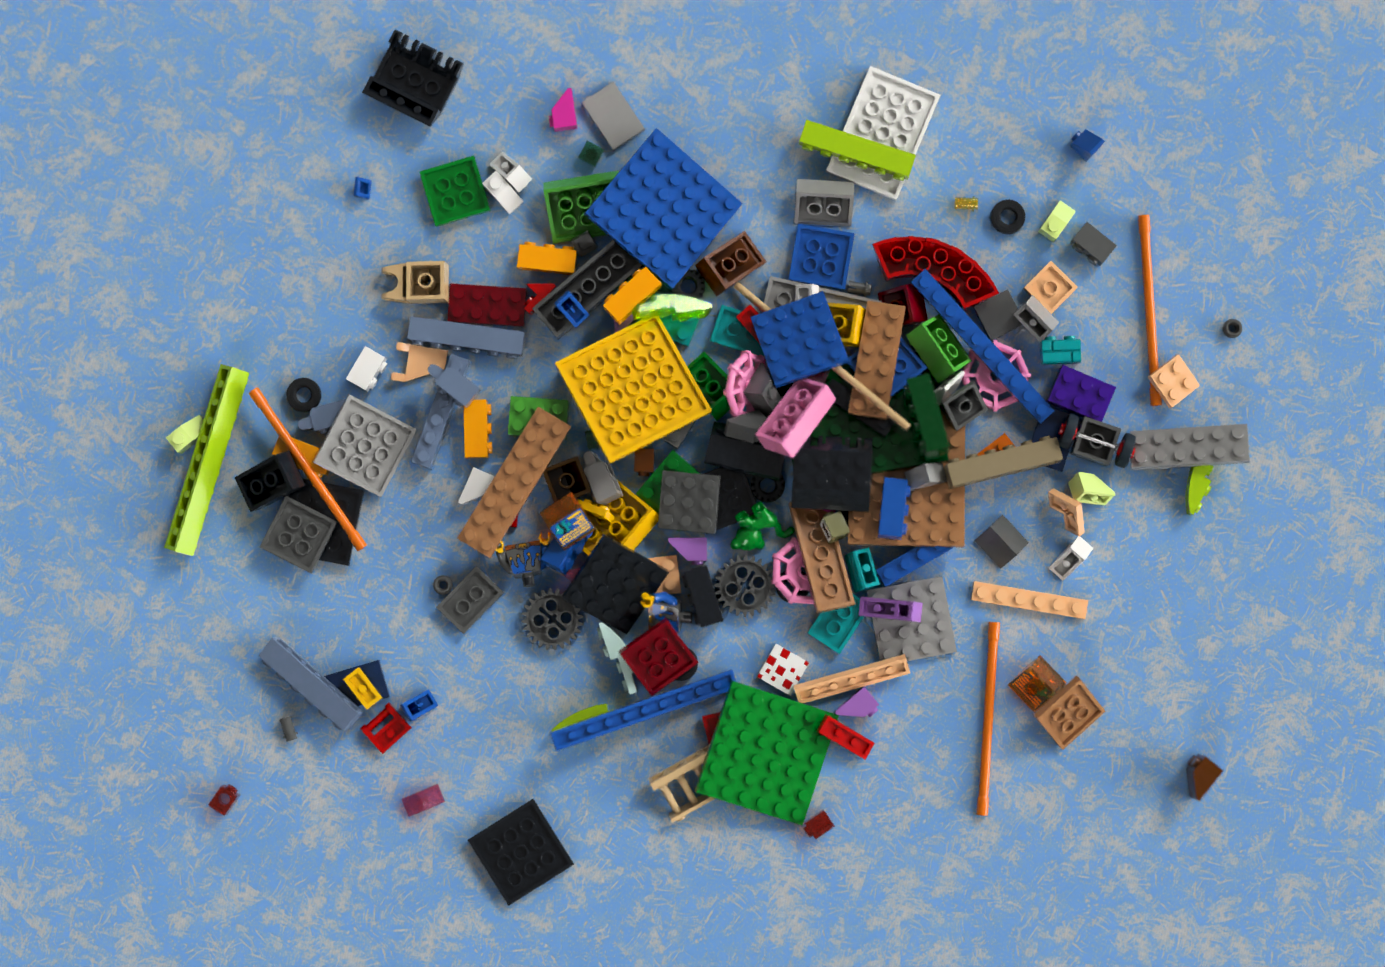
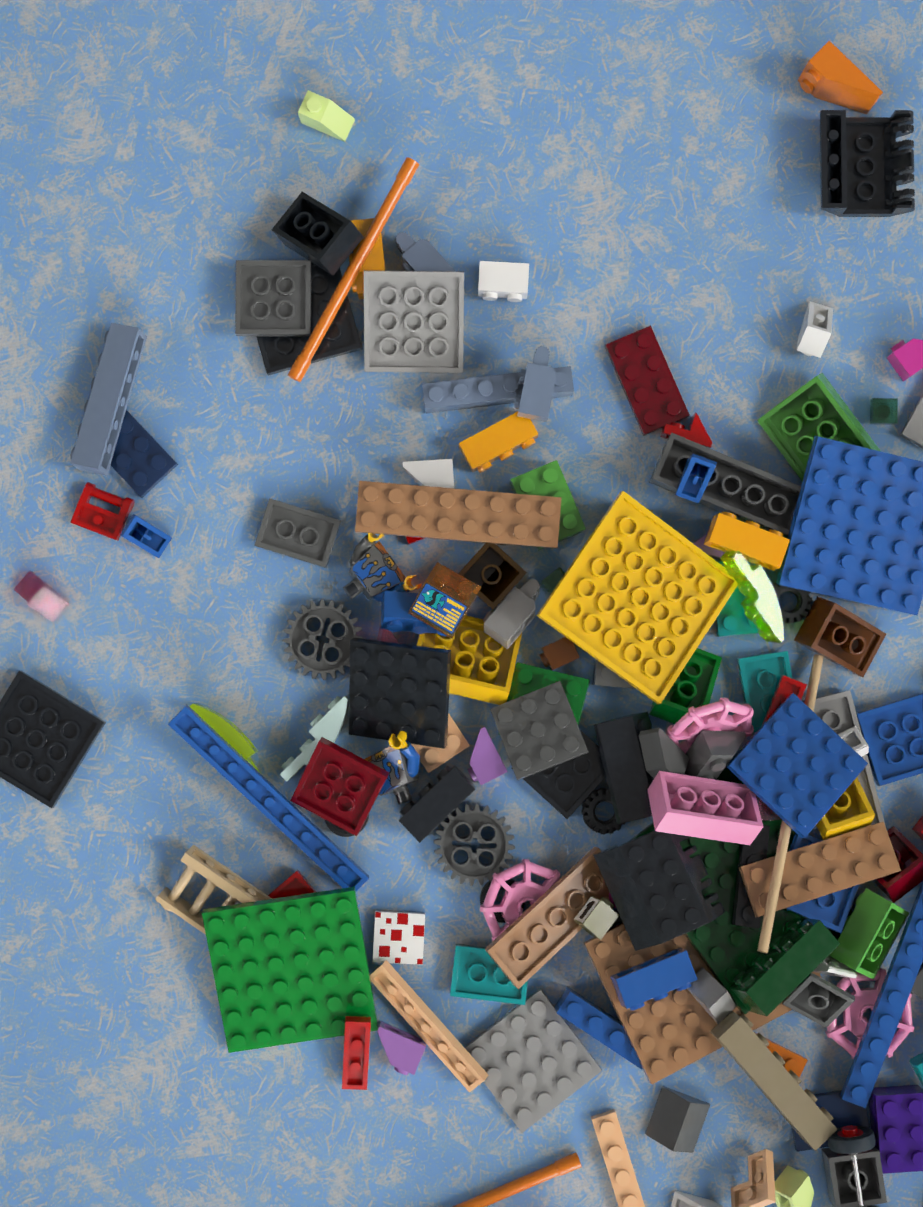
camera: 55 degrees right, 0 degrees up
(206, 460) = (306, 151): lime brick -> none
(288, 729) = (46, 401): dark grey pin -> none
(292, 391) = (437, 209): black tyre -> none
(346, 69) = (838, 81): none -> orange slope
(362, 187) = (708, 170): blue slope -> none
(362, 688) = (133, 461): yellow plate -> none
(412, 281) = (631, 280): tan brick -> none
(419, 361) = (542, 333): light nougat flag -> none
(438, 589) = (297, 486): dark grey plate -> none
(455, 191) = (759, 277): green plate -> none
(466, 336) = (598, 375): sand blue brick -> none
(502, 192) = (786, 331): white slope -> none
(547, 258) = (736, 421): light orange brick -> none
(584, 243) = (776, 456): dark grey plate -> none
(601, 512) = (474, 632): yellow plate -> none
(749, 535) = (535, 820): green animal -> none
(818, 824) = (238, 1072): clear red brick -> none
(861, 288) = (890, 803): dark grey pin -> none
(862, 569) = (561, 973): teal brick -> none
(890, 609) = (532, 1032): medium lavender slope -> none

